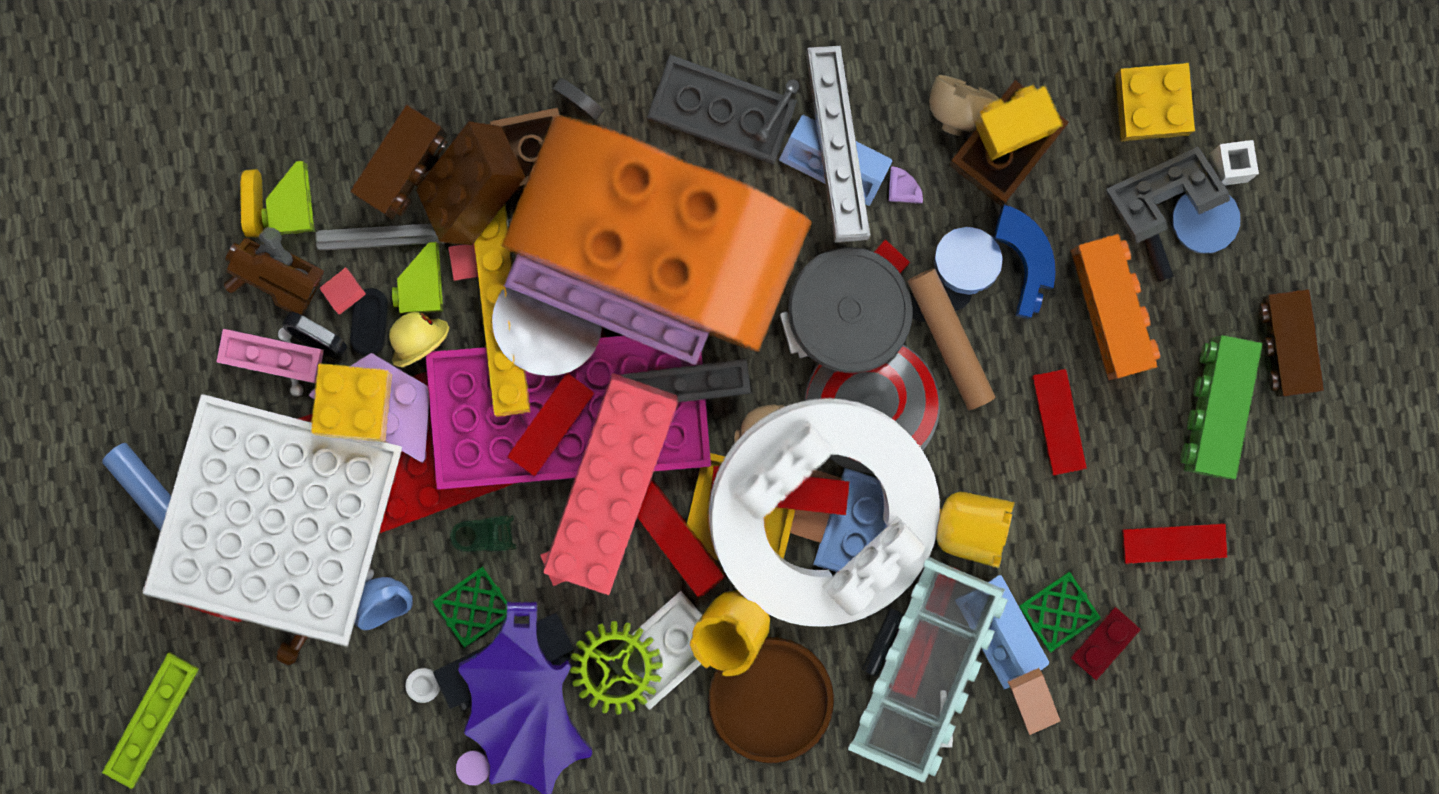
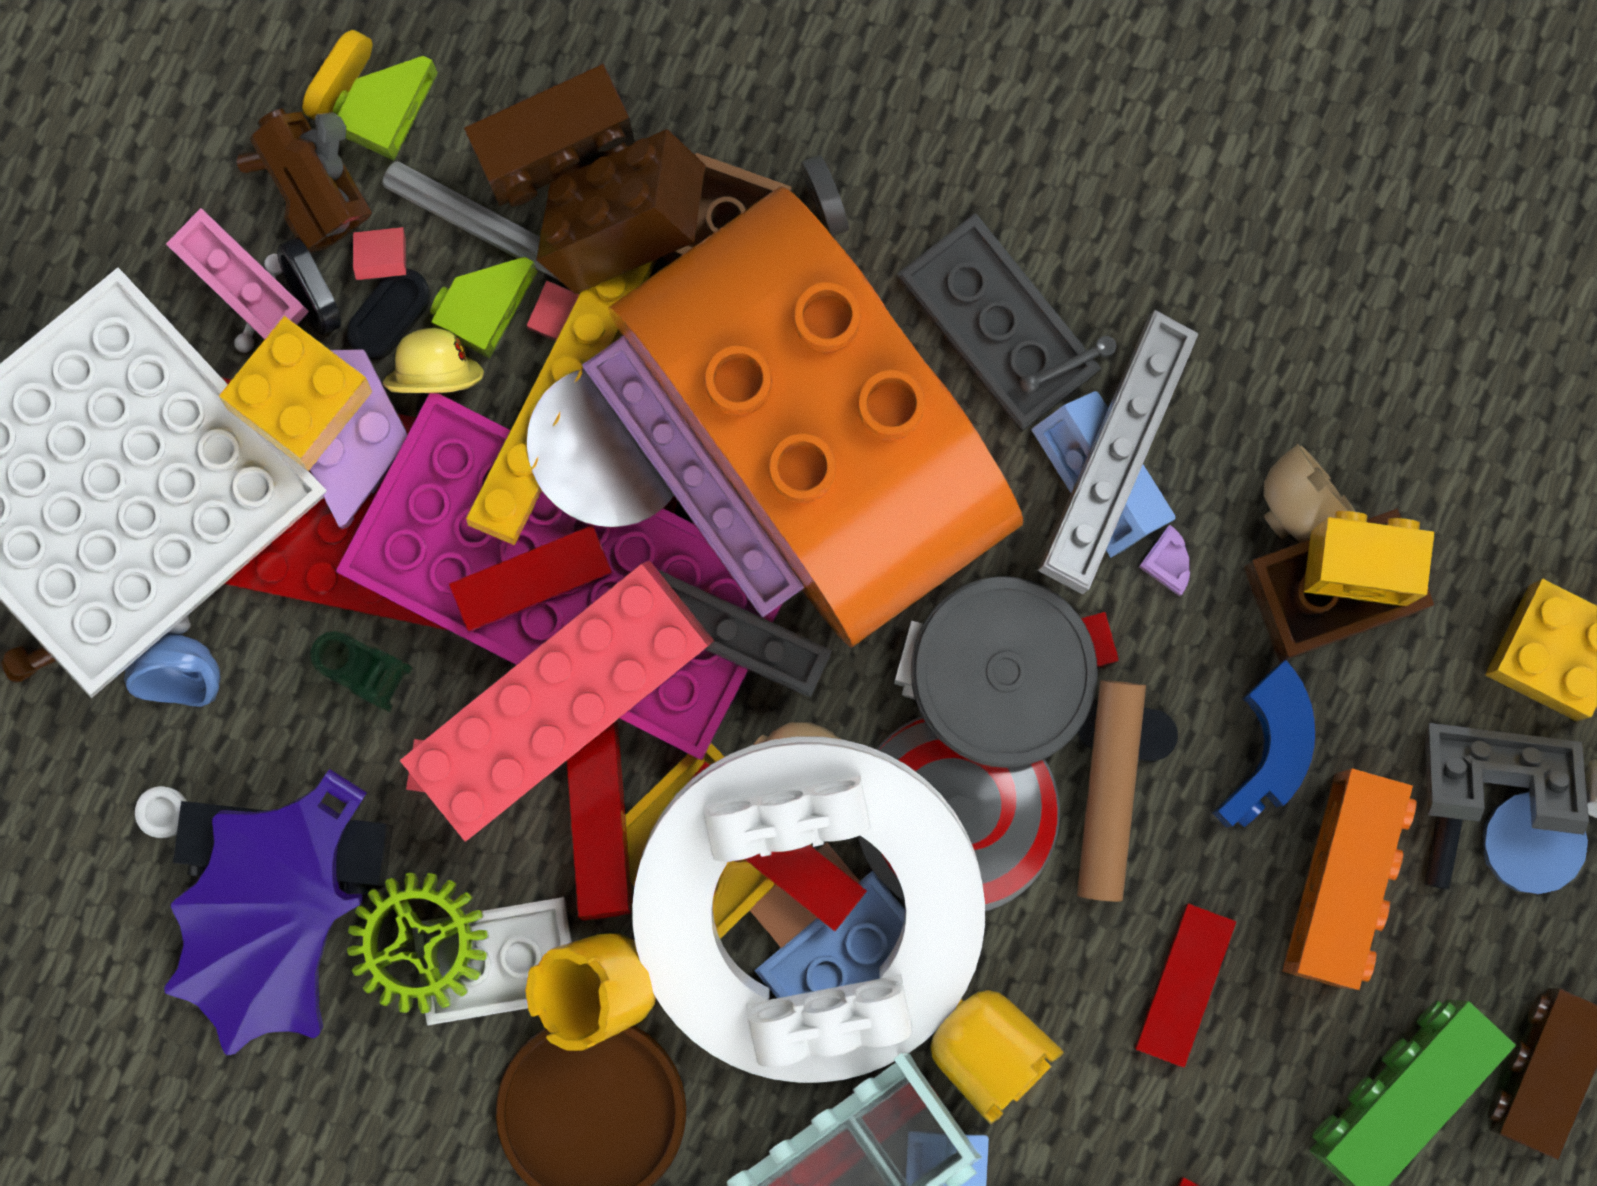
camera: 35 degrees right, 5 degrees down
(451, 622) = (250, 754): green window -> none
(473, 767) = (155, 957): lavender tile -> none
(882, 642) = (780, 1128): black piece -> none
(968, 260) = (1194, 703): tile -> none

